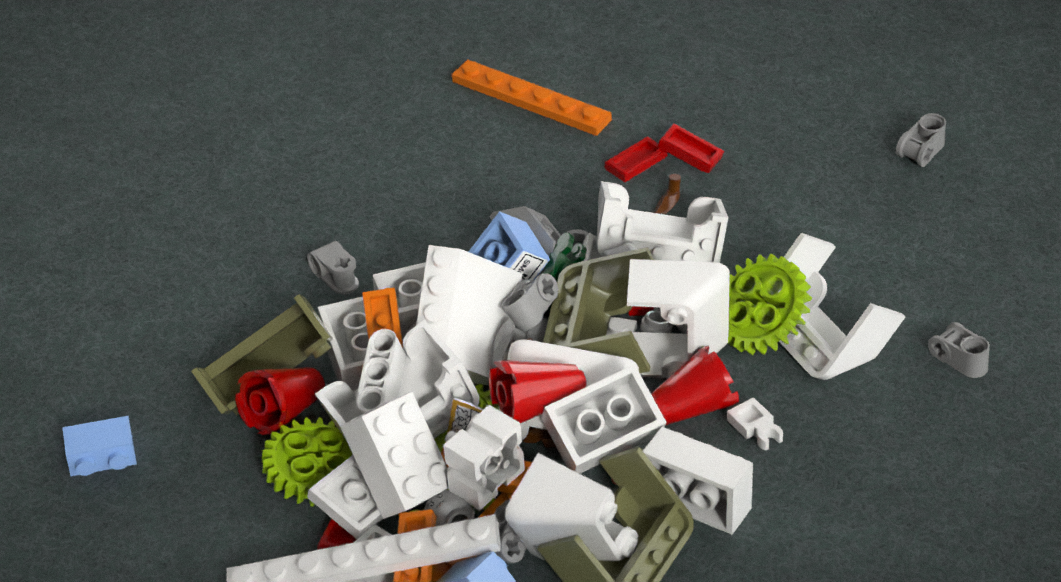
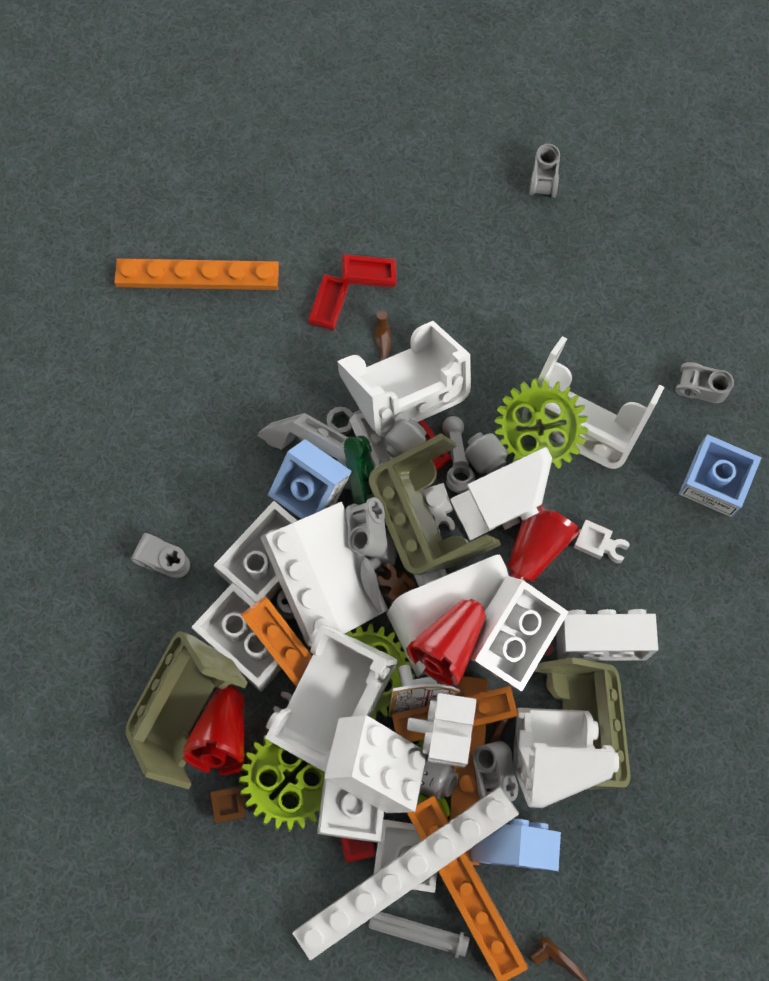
camera: 35 degrees left, 30 degrees up
(99, 446) = (96, 868): light blue brick -> none
(245, 457) = (228, 805): none -> reddish brown plate
(381, 371) = (312, 709): white beam -> none
(916, 416) = (720, 476): none -> light blue brick

